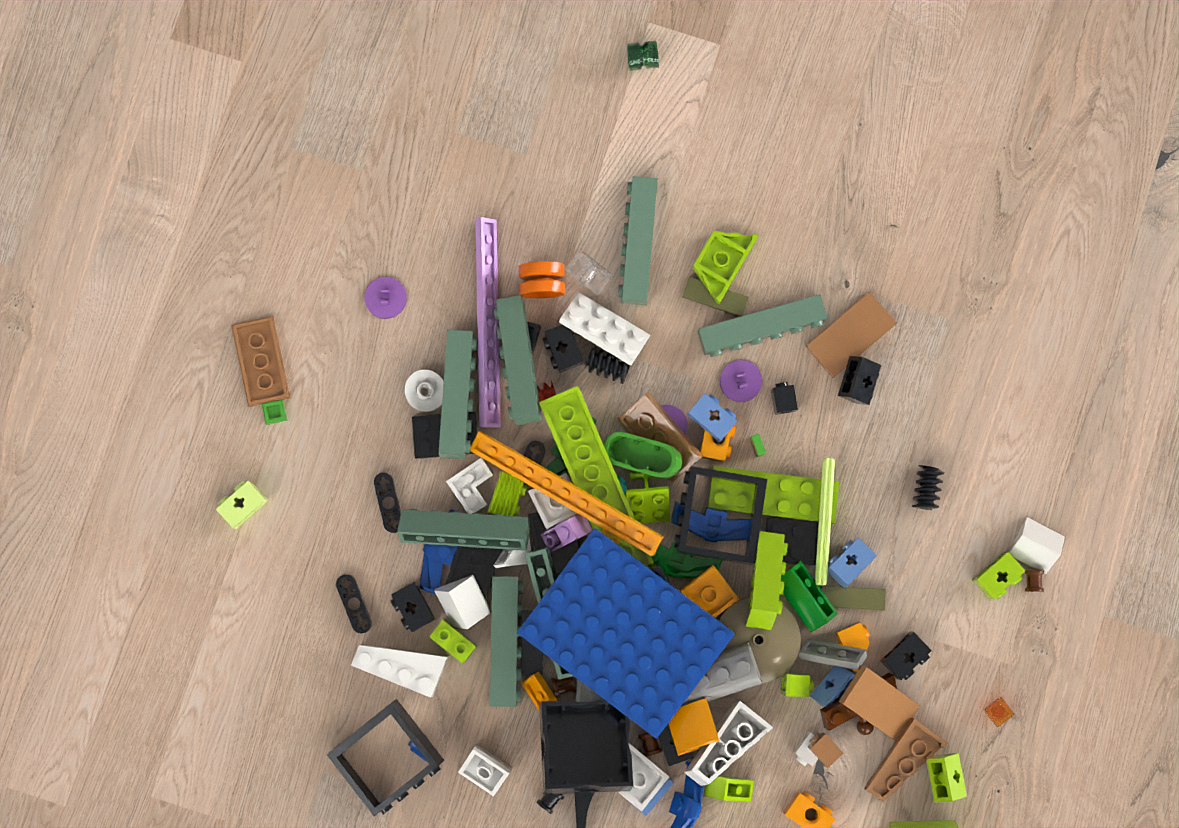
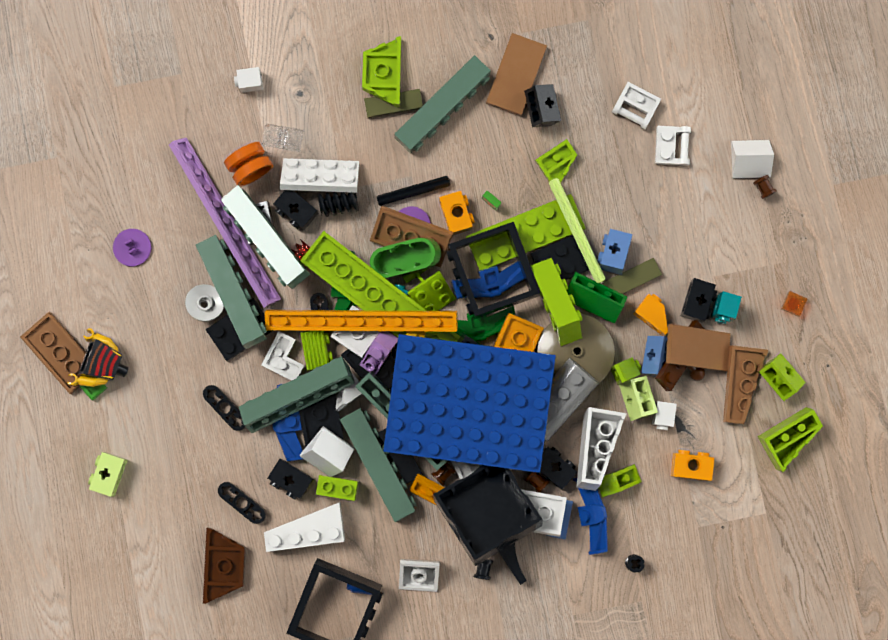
camera: 30 degrees left, 0 degrees up
(294, 392) = (100, 362): none -> torso
(302, 654) = (222, 565): none -> reddish brown wing
(587, 197) = (249, 80): none -> white brick
(639, 240) = (309, 92): sand green brick -> none
(682, 391) = (413, 190): none -> black axle
(693, 727) = (563, 448): light orange slope -> none
(701, 416) = (451, 204): medium blue brick -> none
(741, 381) = (450, 158): medium lavender piece -> none
(784, 398) = (491, 152): black brick -> none
(793, 719) = (638, 398): none -> yellowish green brick
(824, 749) = (675, 407): medium nougat brick -> none
(833, 654) = (641, 330): light grey plate -> none
(843, 442) = (557, 161): none -> lime wing
(928, 488) = (643, 160): black piece -> none
(928, 678) = (725, 307): none -> teal brick
(958, 427) = (639, 100): none -> white plate
(960, 484) = (666, 145): none -> white plate
(987, 578) = (734, 187): lime brick -> none

